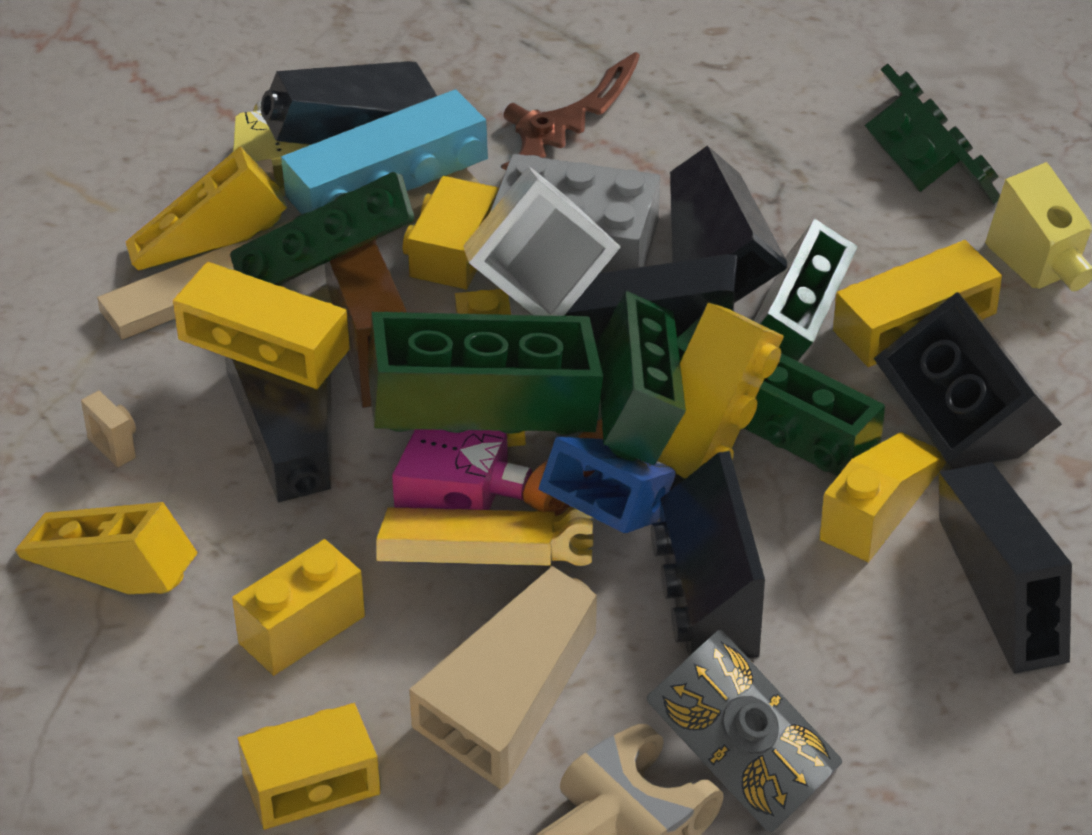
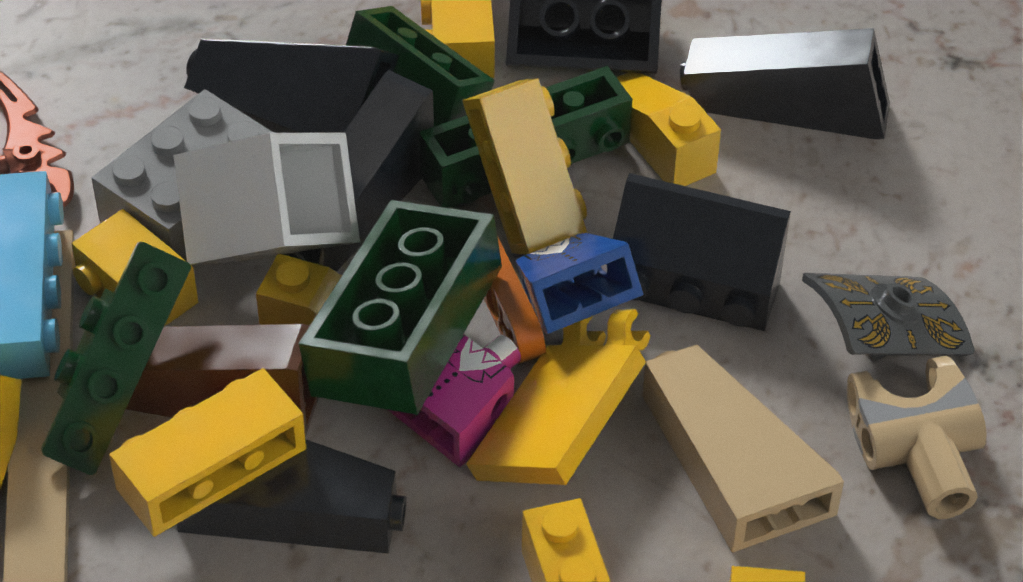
camera: 65 degrees left, 5 degrees up
(640, 379) = (529, 202): dark green brick -> none

